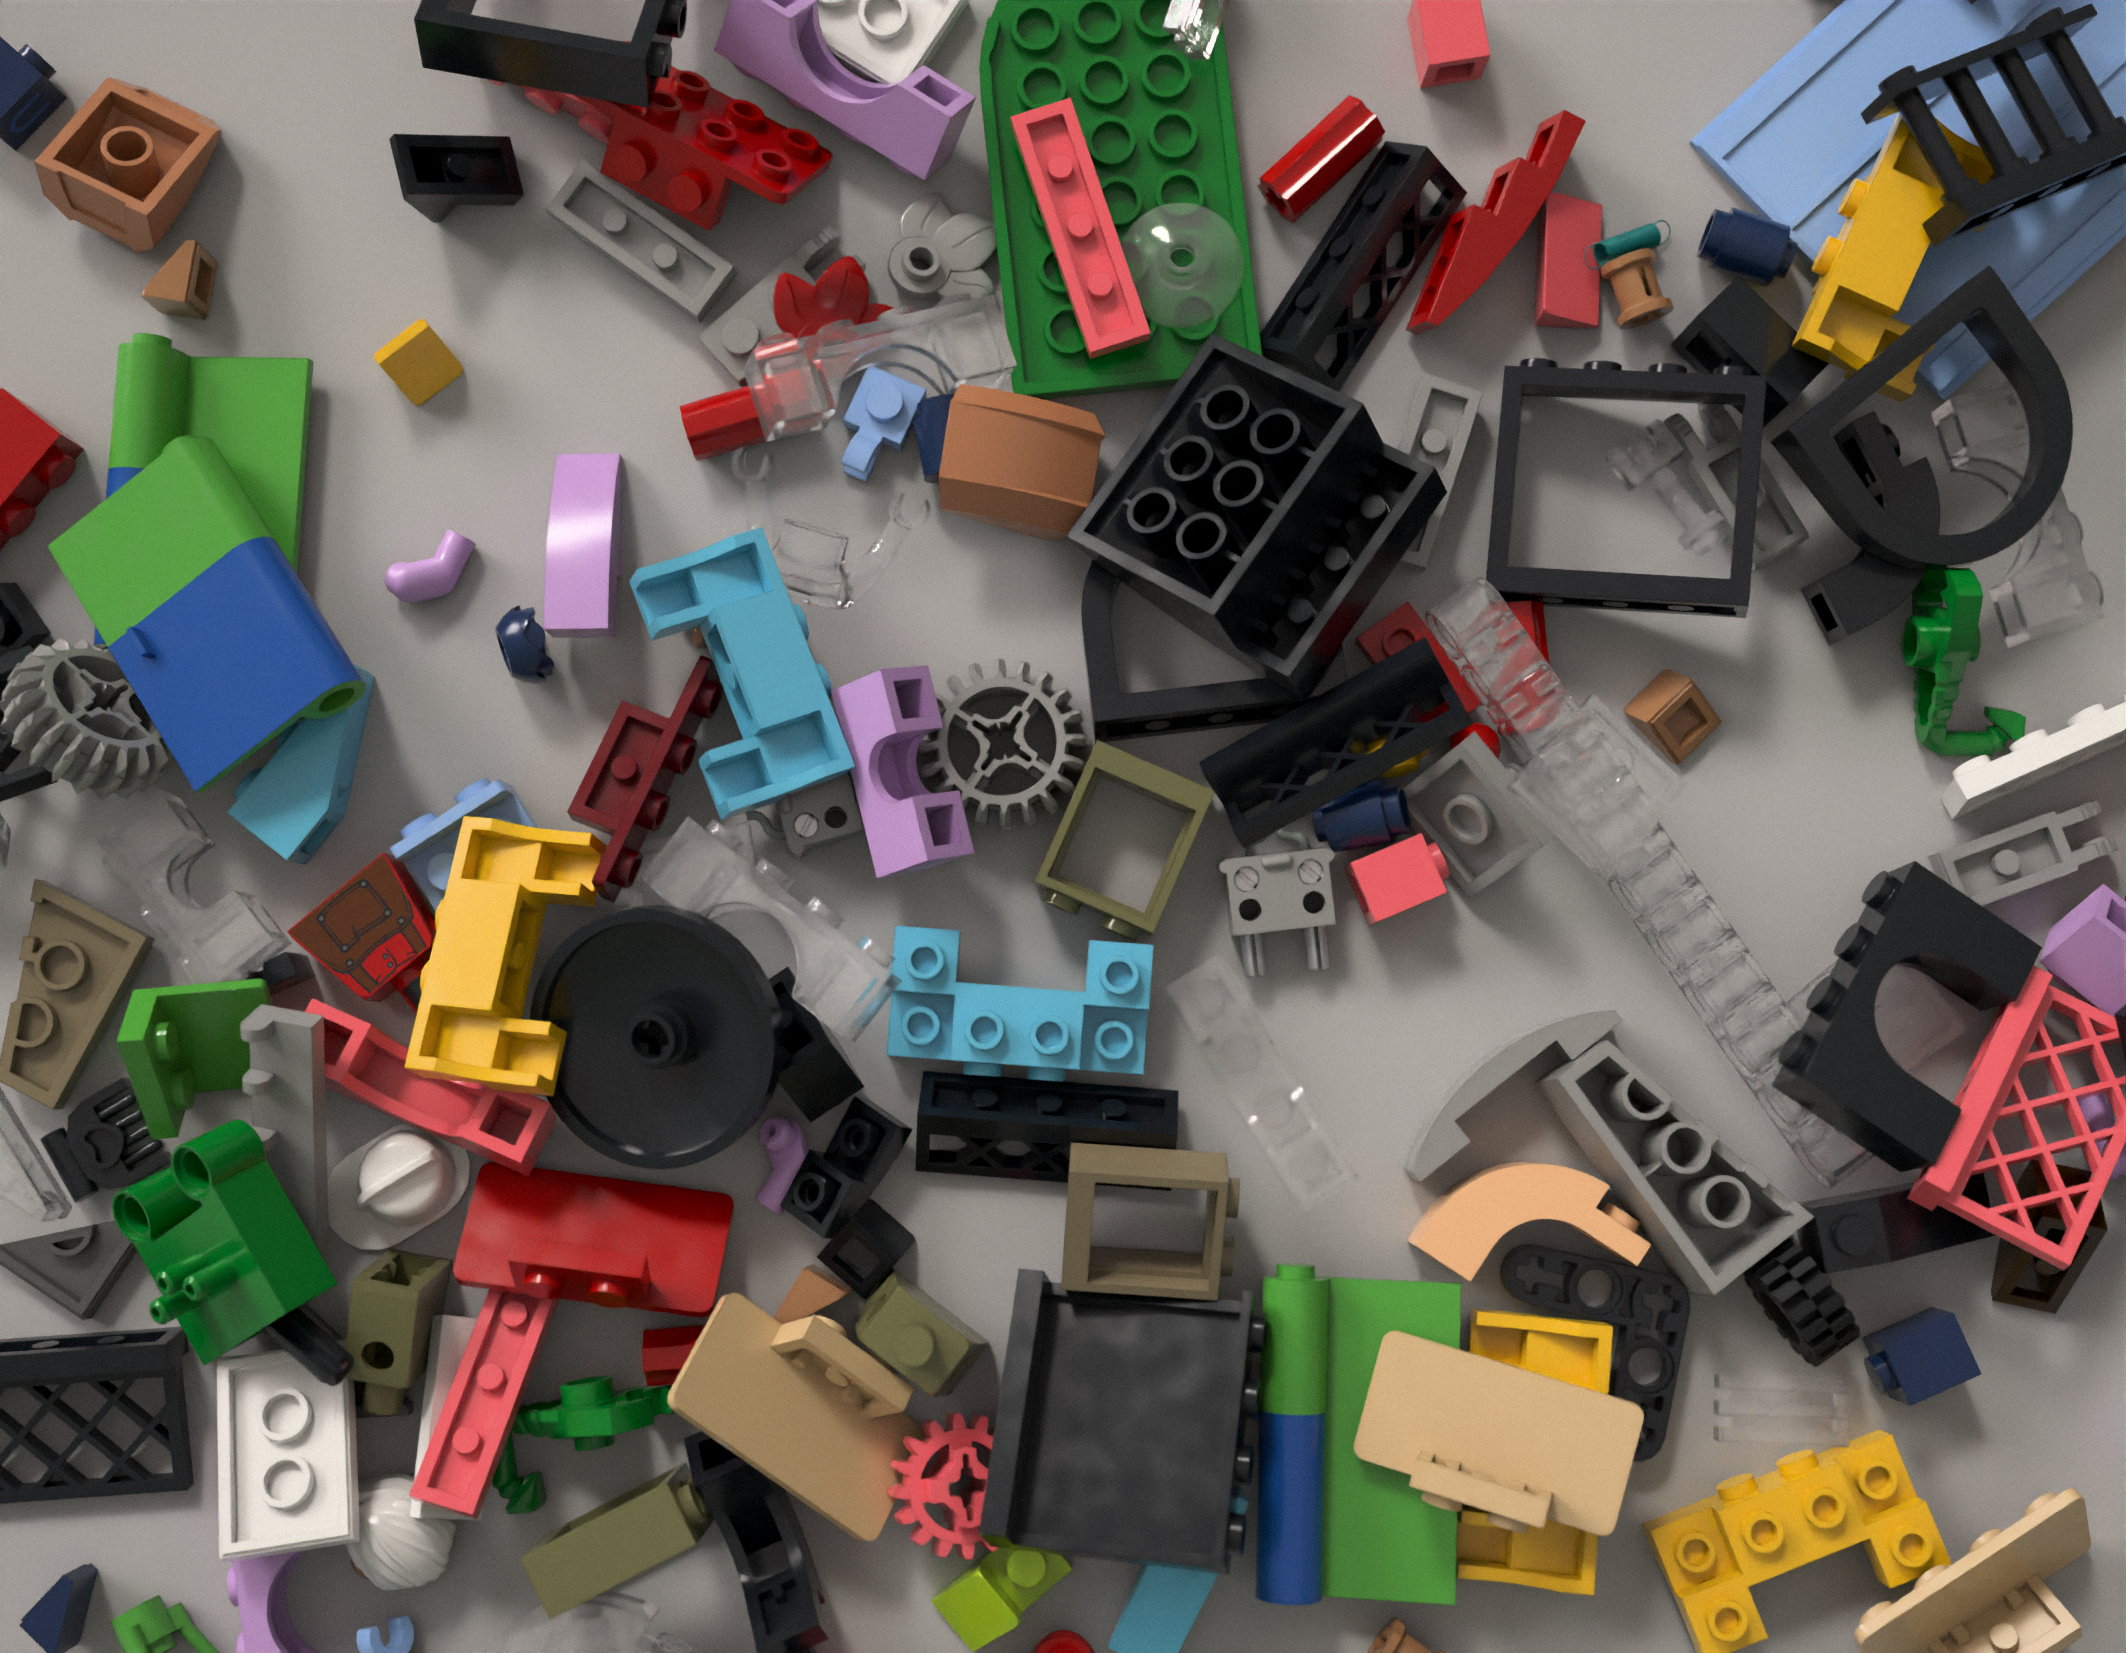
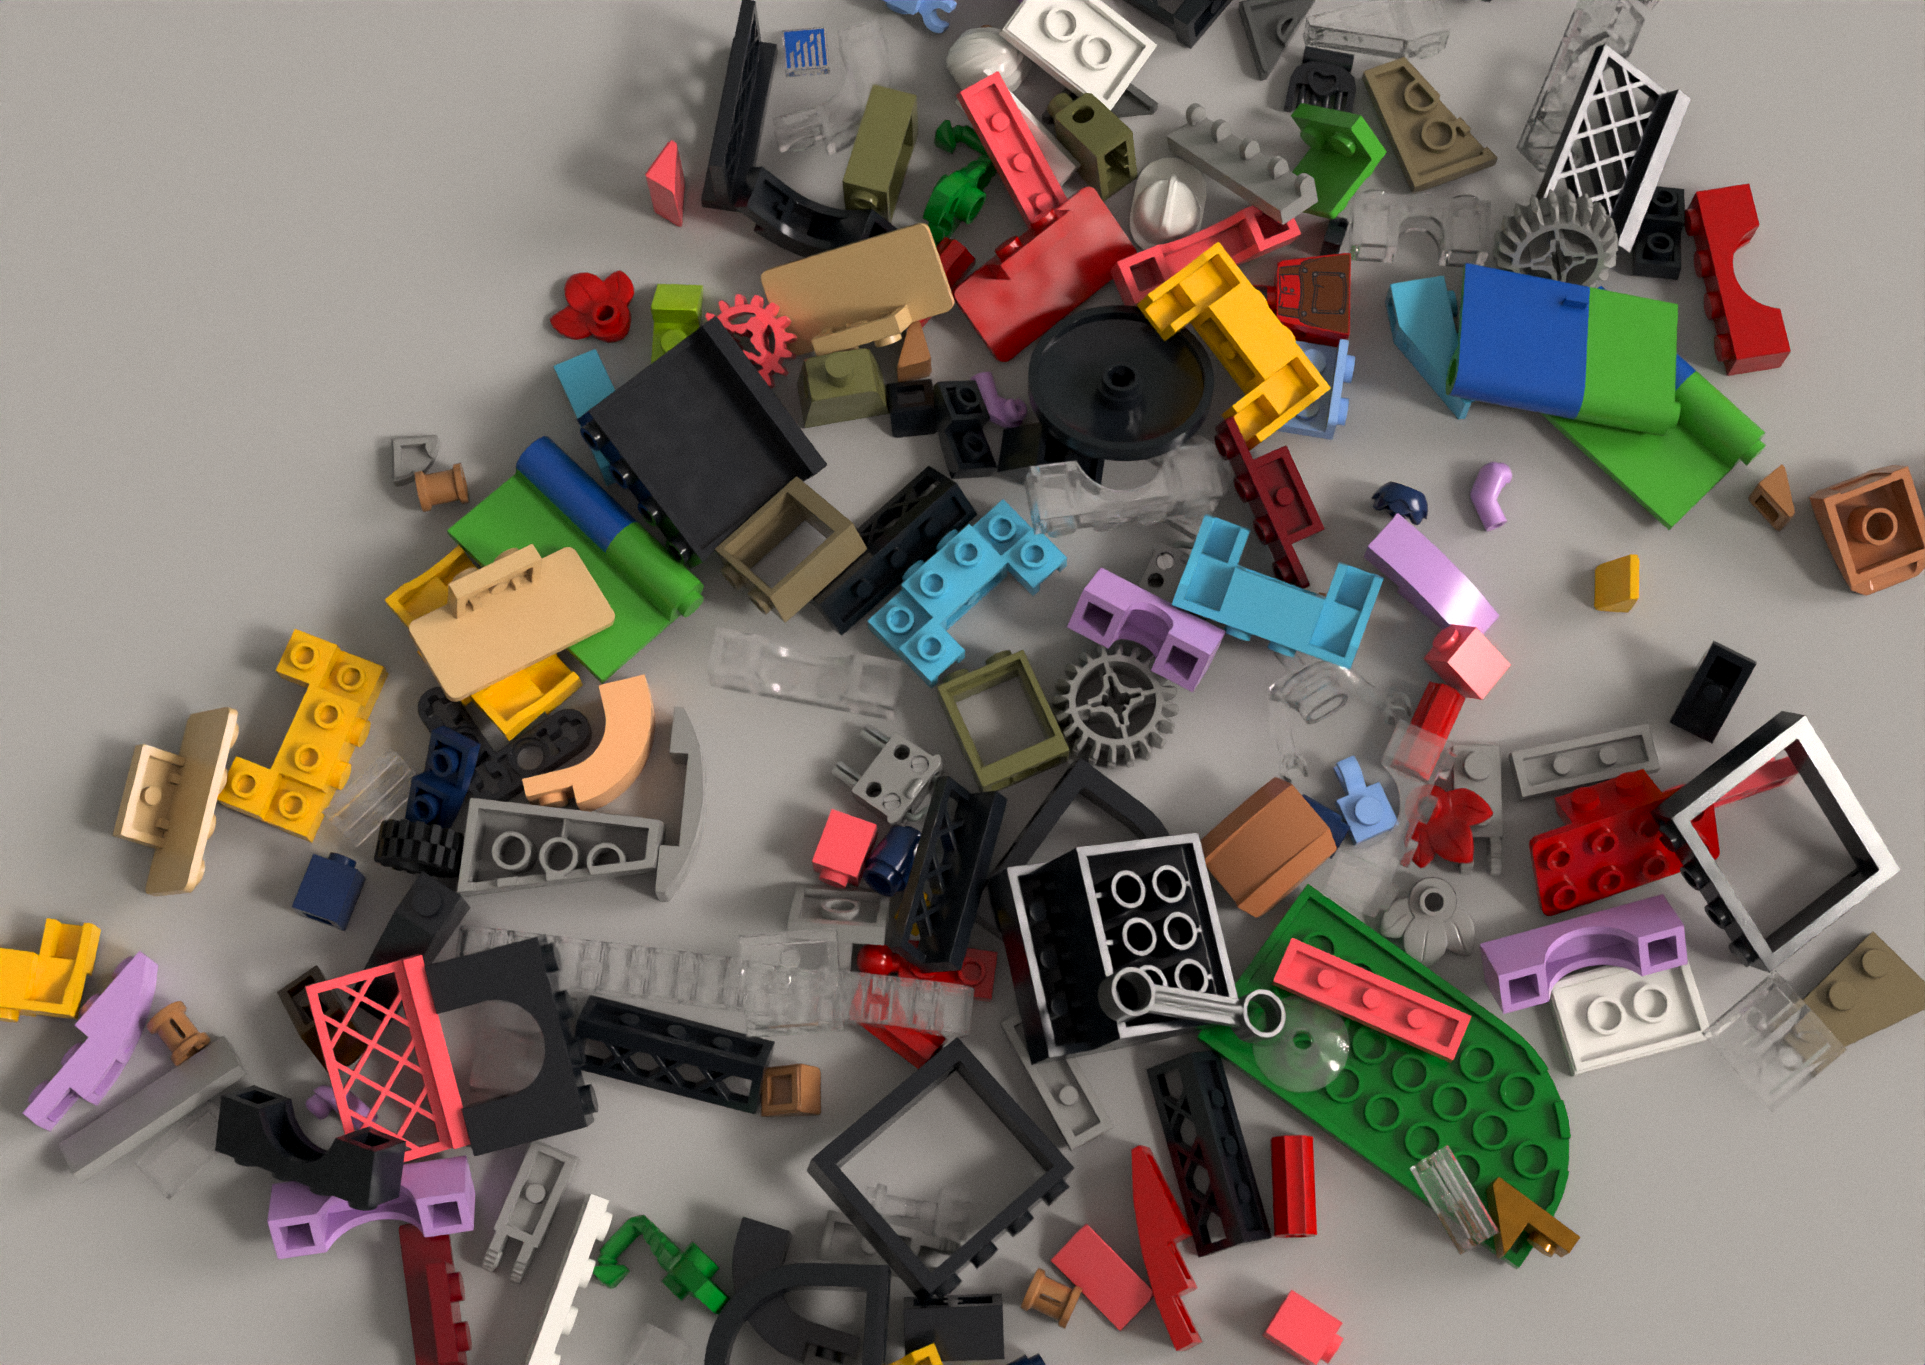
camera: 135 degrees right, 10 degrees down
(230, 1251) = (1203, 89): green piece -> none
(640, 434) = (1466, 660): none -> brick
(1259, 373) = (1191, 1005): none -> piece
(1639, 238) = (1082, 1320): teal piece -> none
(1706, 1348) = (441, 788): none -> dark blue slope
(1744, 866) = (671, 1044): none -> black fence

